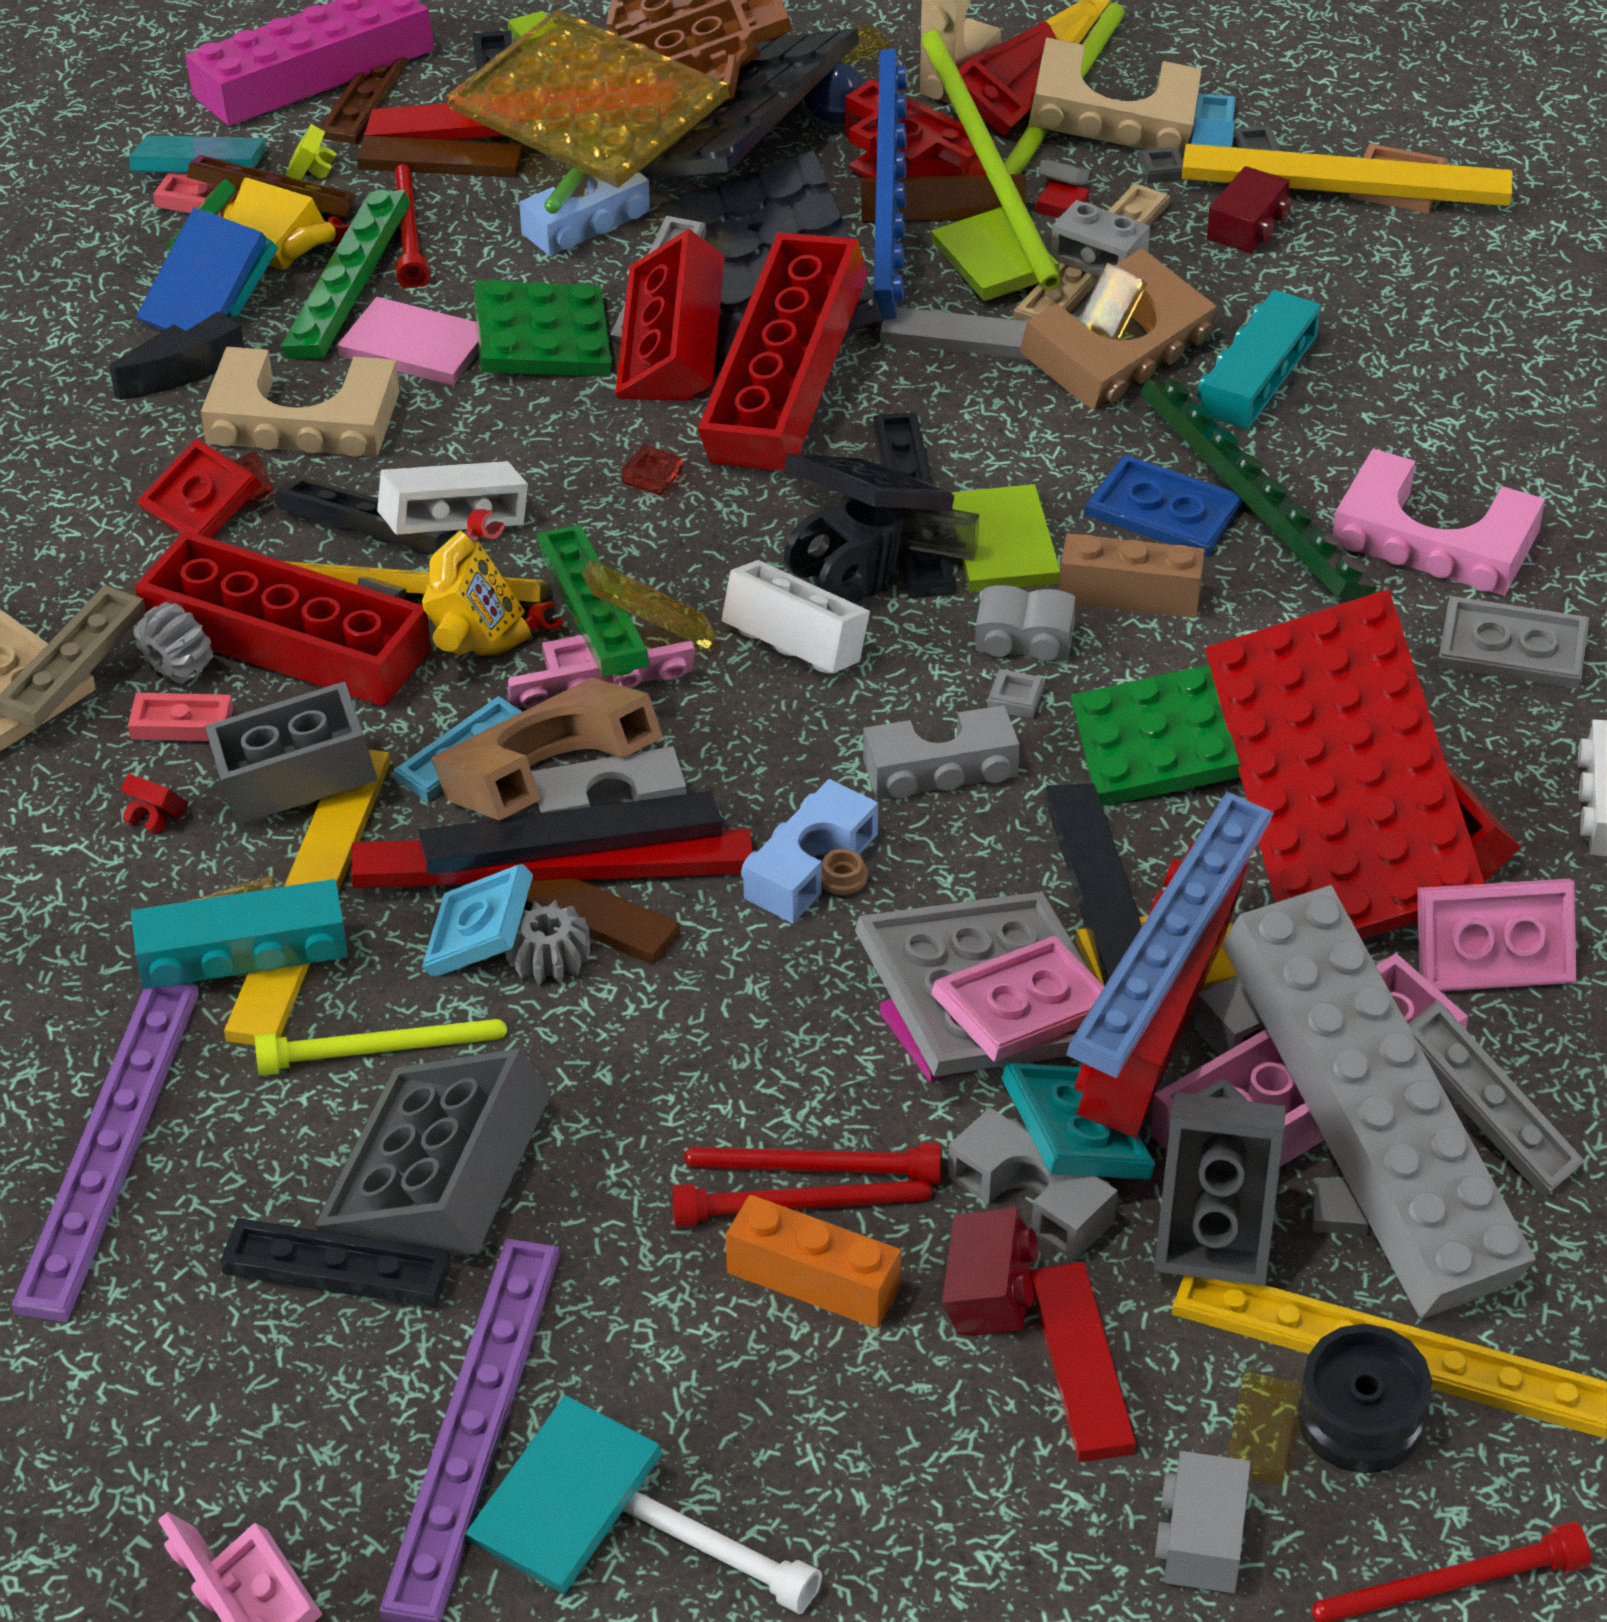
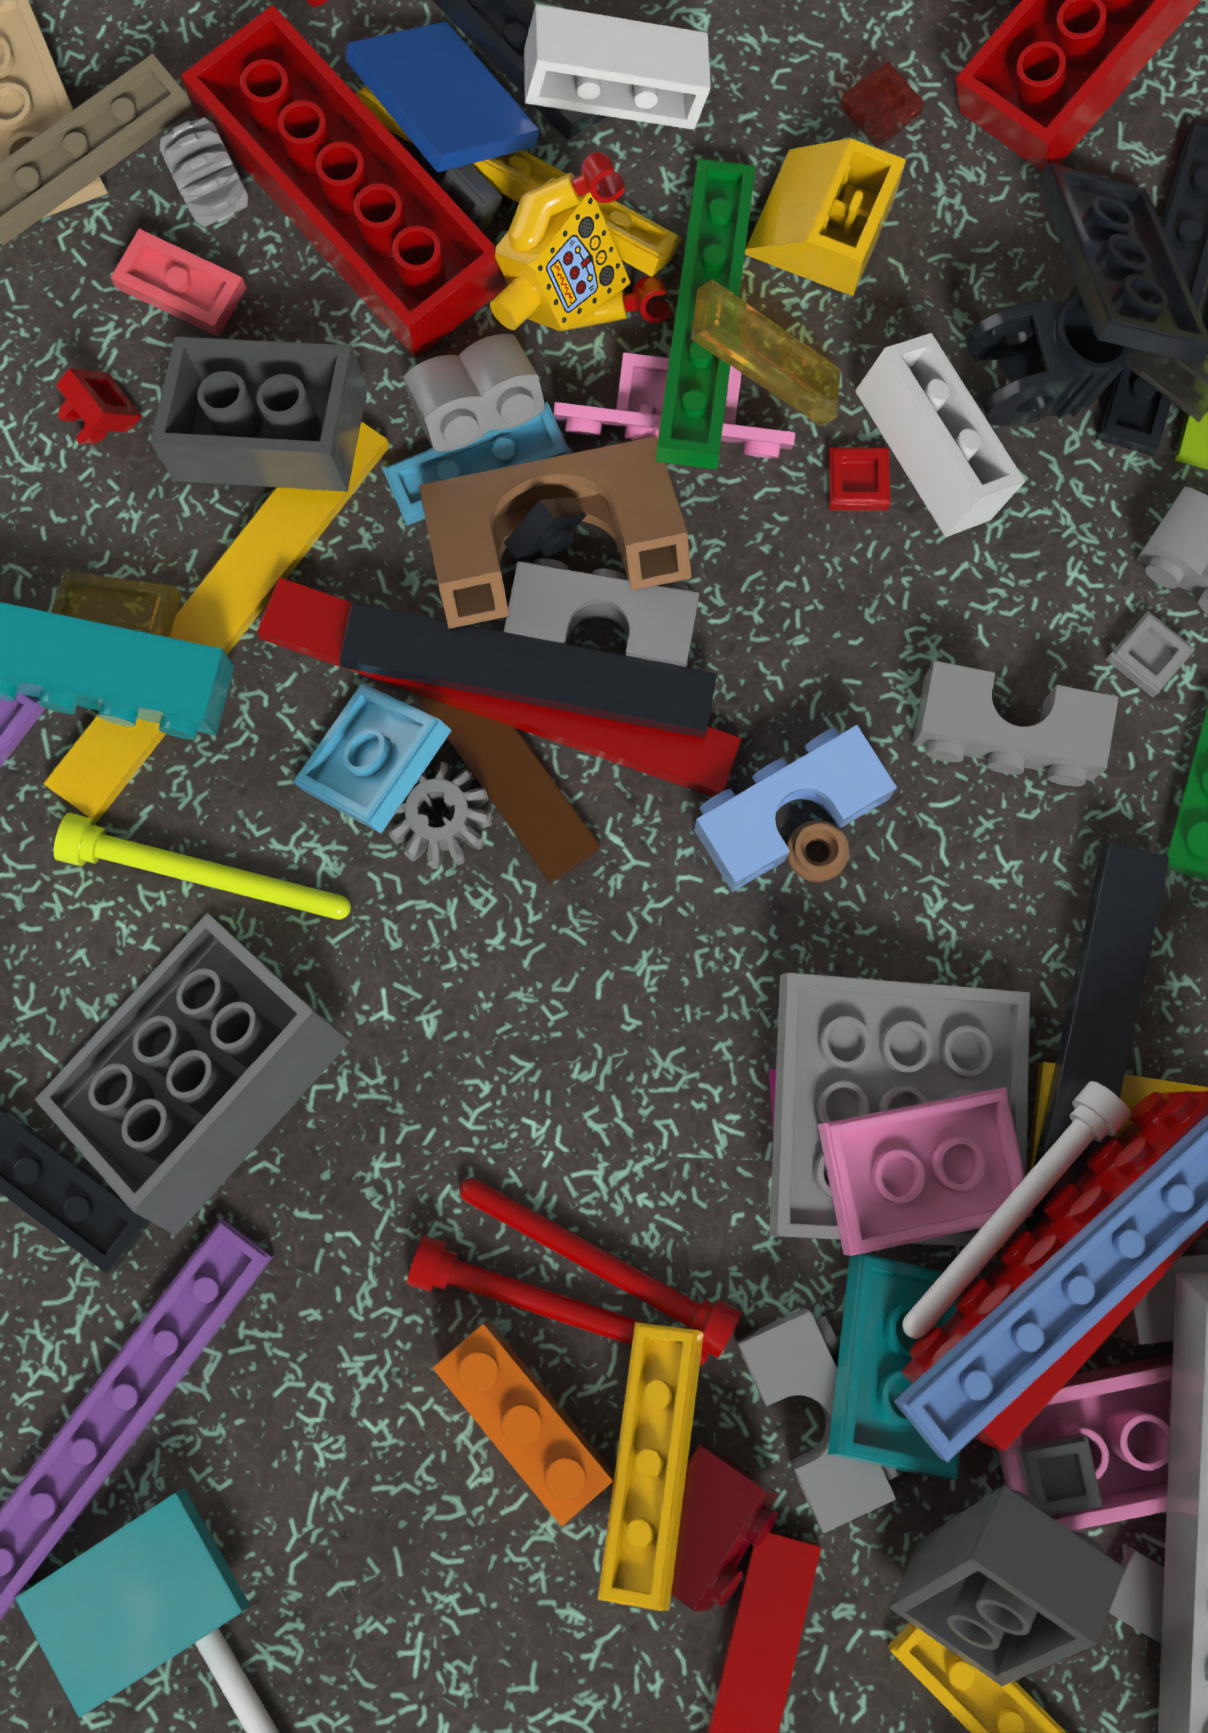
camera: 25 degrees right, 35 degrees up
(333, 550) = (442, 96): none -> blue tile
(443, 699) = (474, 392): none -> light grey brick
(542, 748) = (546, 529): none -> black plate
(648, 528) = (827, 212): none -> yellow slope
(751, 668) = (858, 478): none -> red tile
(925, 1239) = (651, 1467): none -> yellow tile
(1123, 926) = (1095, 1115): none -> white piece

